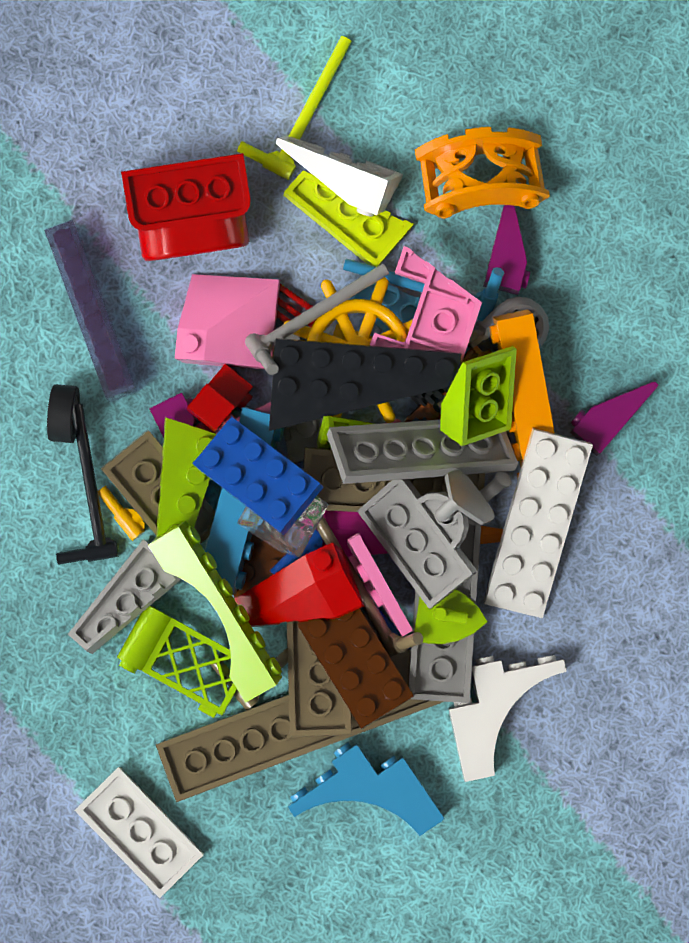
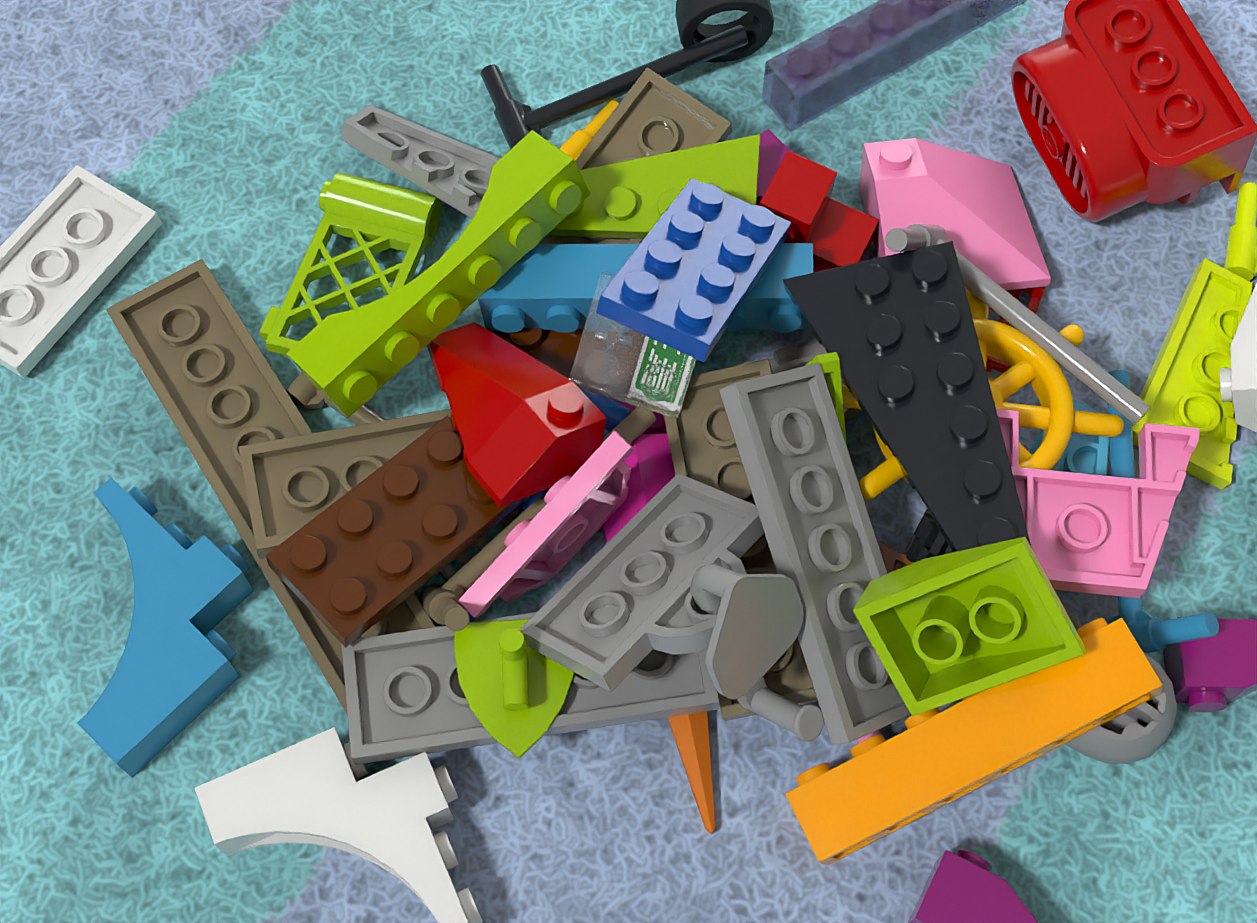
camera: 75 degrees right, 20 degrees down
(537, 523) = (743, 820): white plate -> none

